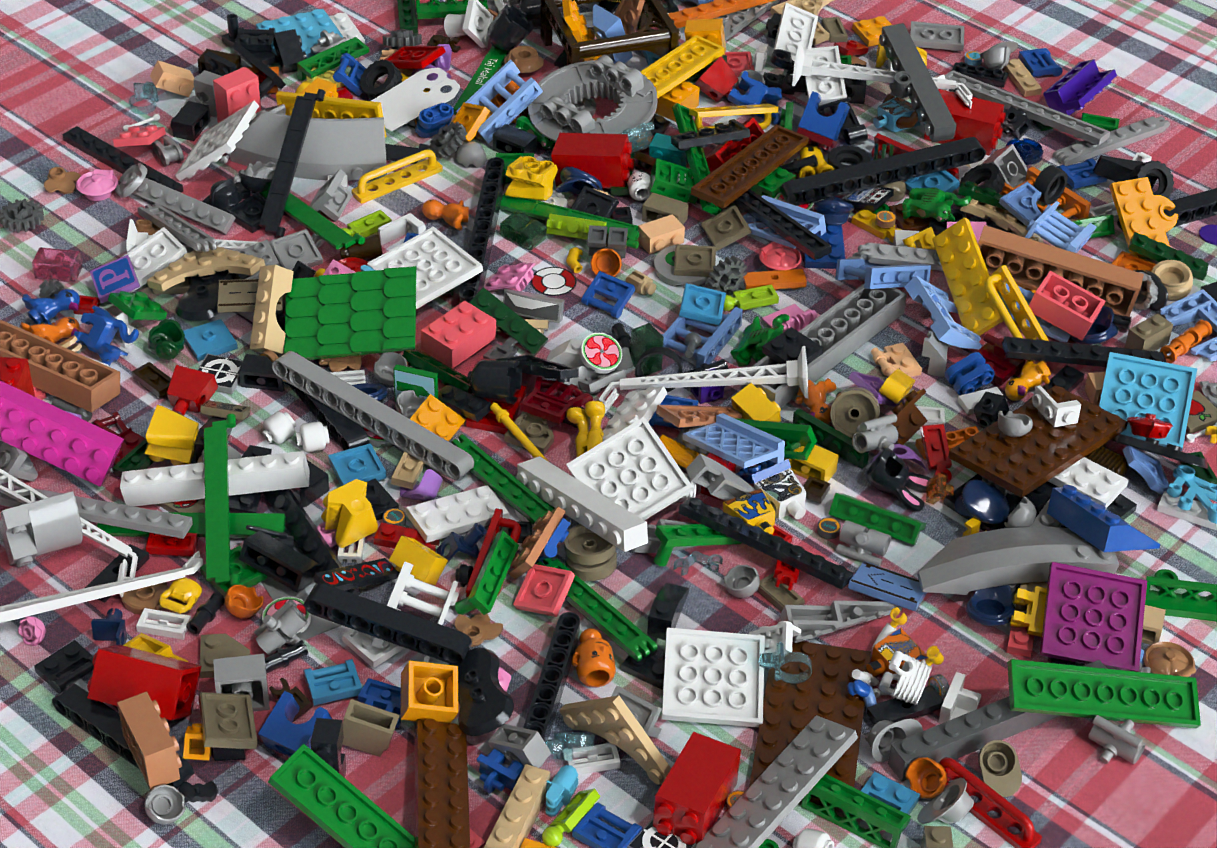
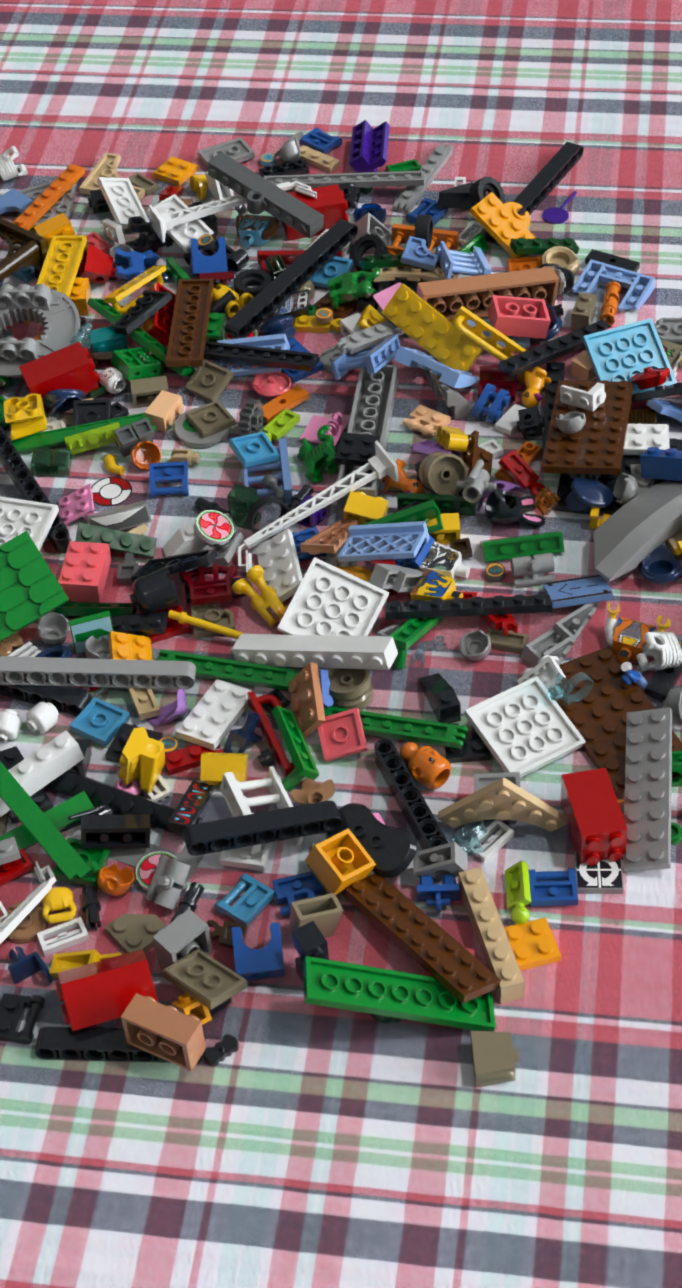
camera: 30 degrees left, 5 degrees up
(164, 804) = (211, 1075): light grey hair -> none
(560, 789) = (494, 875): medium azure arm -> none
(830, 102) = (206, 242): none -> dark grey tile

